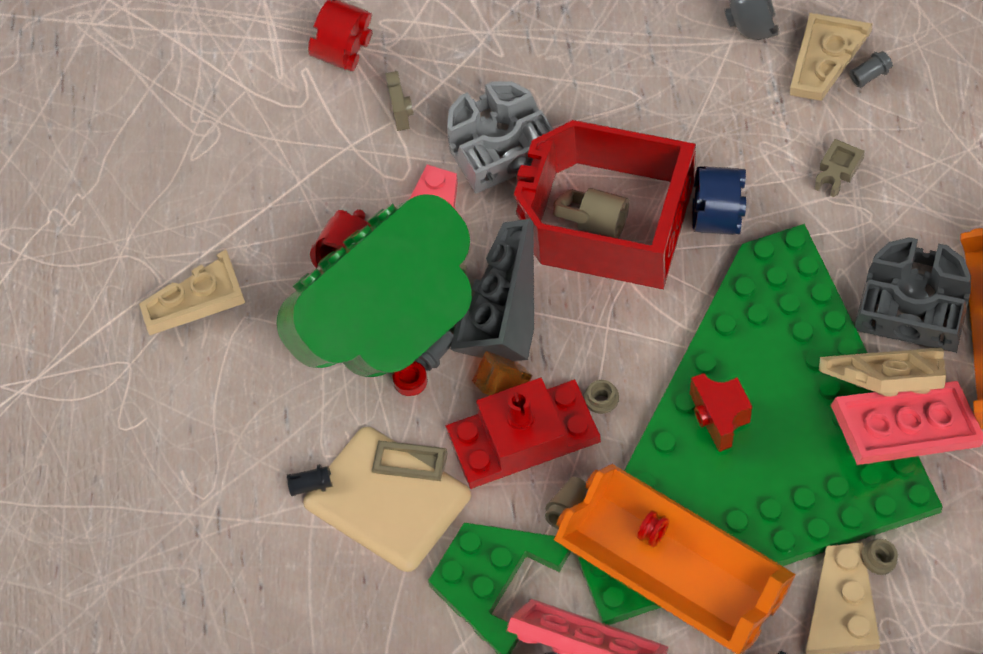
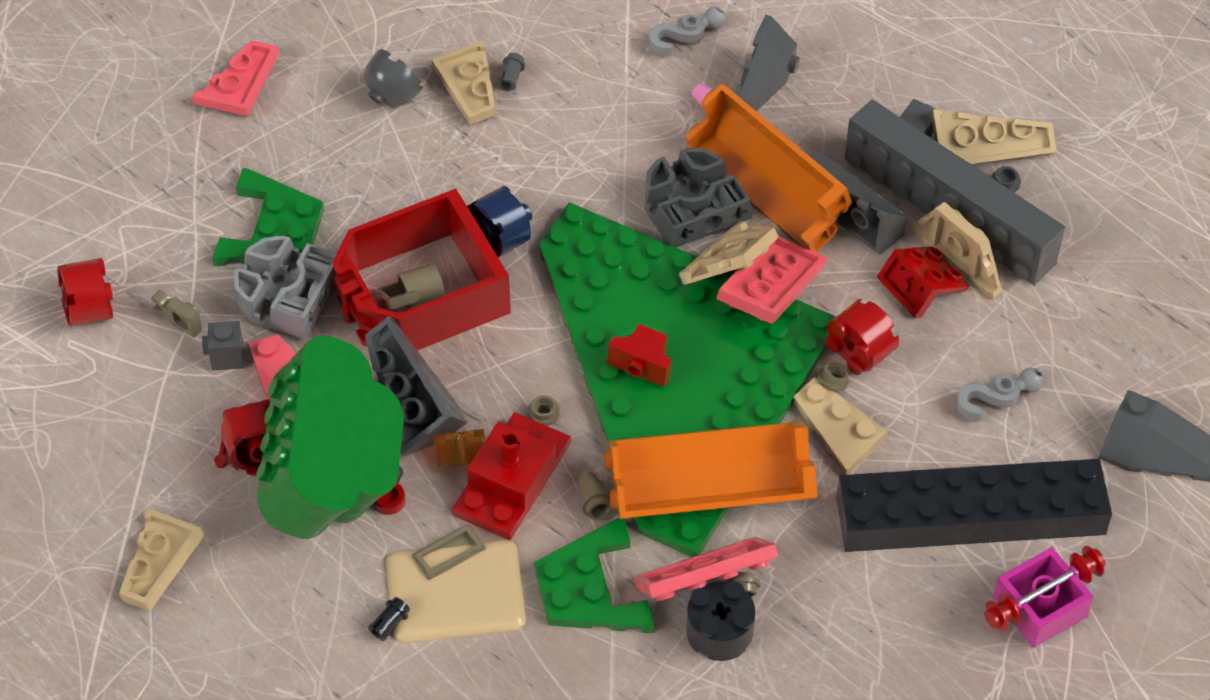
camera: 50 degrees left, 5 degrees down
(404, 154) = (224, 345): none -> dark grey brick
(556, 80) = (282, 214): none -> green wing
(653, 528) = (679, 462): red bush -> none
(838, 163) = (553, 147): dark tan plate -> none
(937, 537) = (862, 336): none -> red brick

